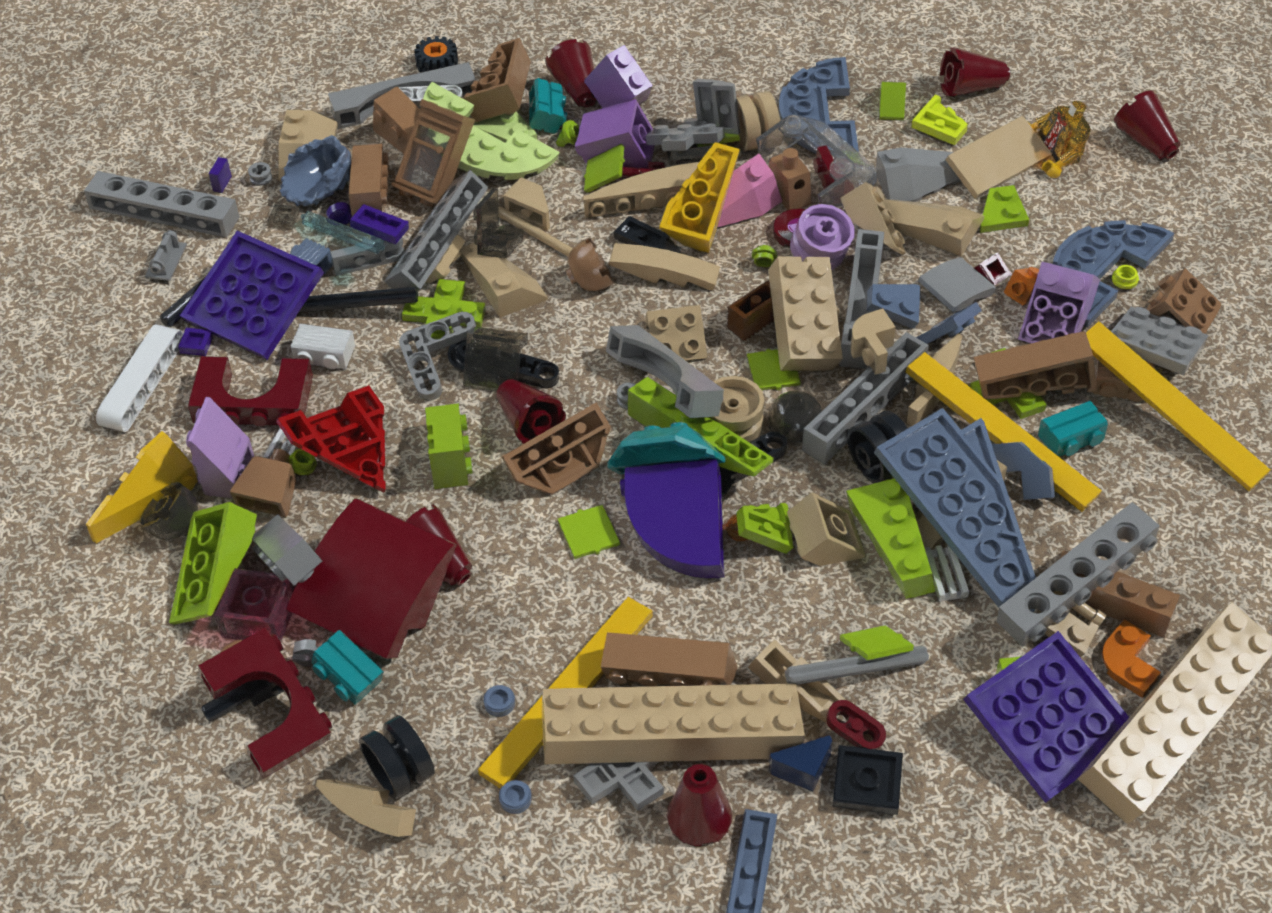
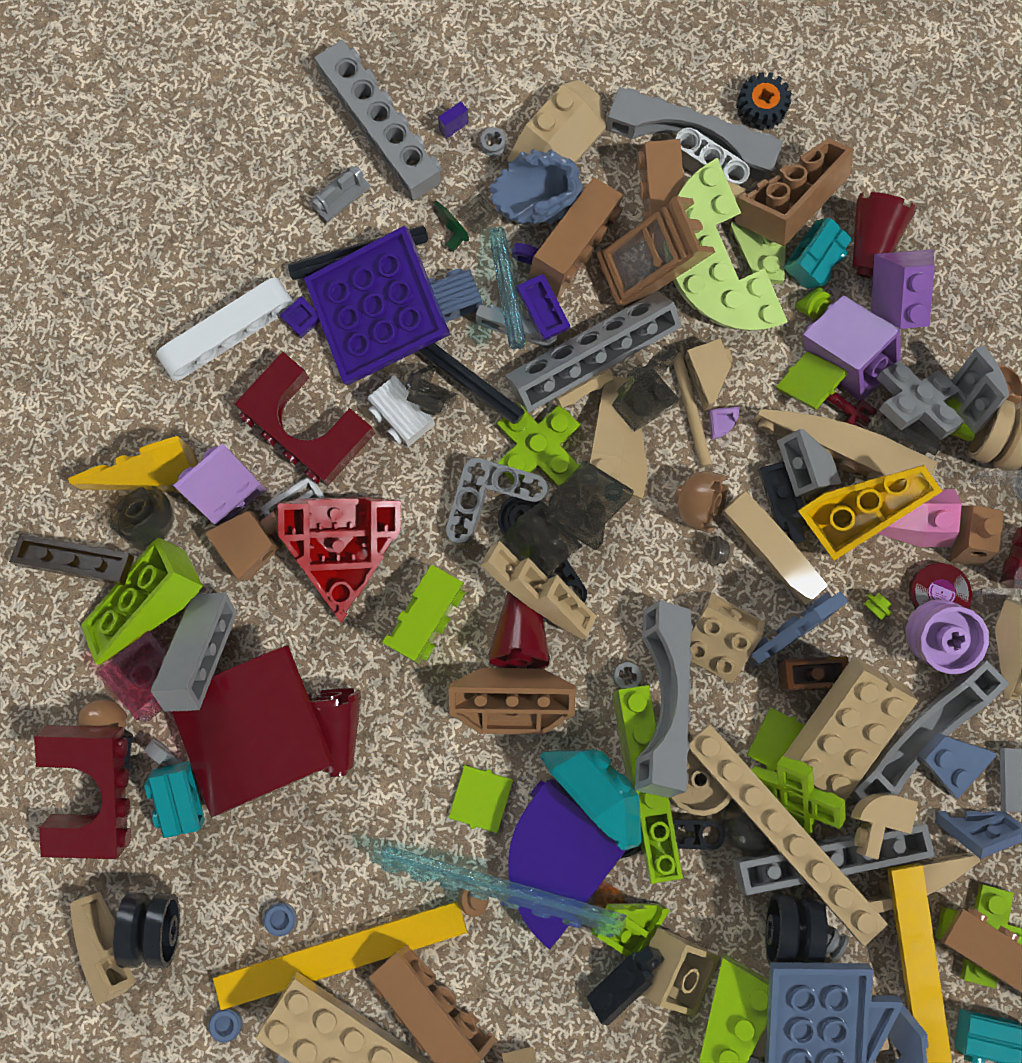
camera: 35 degrees right, 30 degrees up
(128, 576) = (72, 559): none -> dark brown plate
(275, 231) = (451, 223): none -> dark green bar
(337, 316) = (428, 395): none -> clear smoke bracket
(509, 303) = (587, 504): none -> clear smoke bracket
(527, 372) = (544, 595): none -> tan slope
(563, 226) = (722, 421): none -> lavender tile
(626, 291) = (717, 551): none -> clear smoke plate
(638, 587) = (470, 905): none -> medium nougat plate
(640, 205) = (808, 464): none -> light grey slope
(654, 546) = (510, 893): none -> clear light blue plate
(721, 284) = (795, 628): none -> sand blue plate
(794, 555) = (624, 984): none -> black hinge
(806, 367) = (796, 792): none -> lime plate
(819, 389) = (787, 835): none -> tan plate

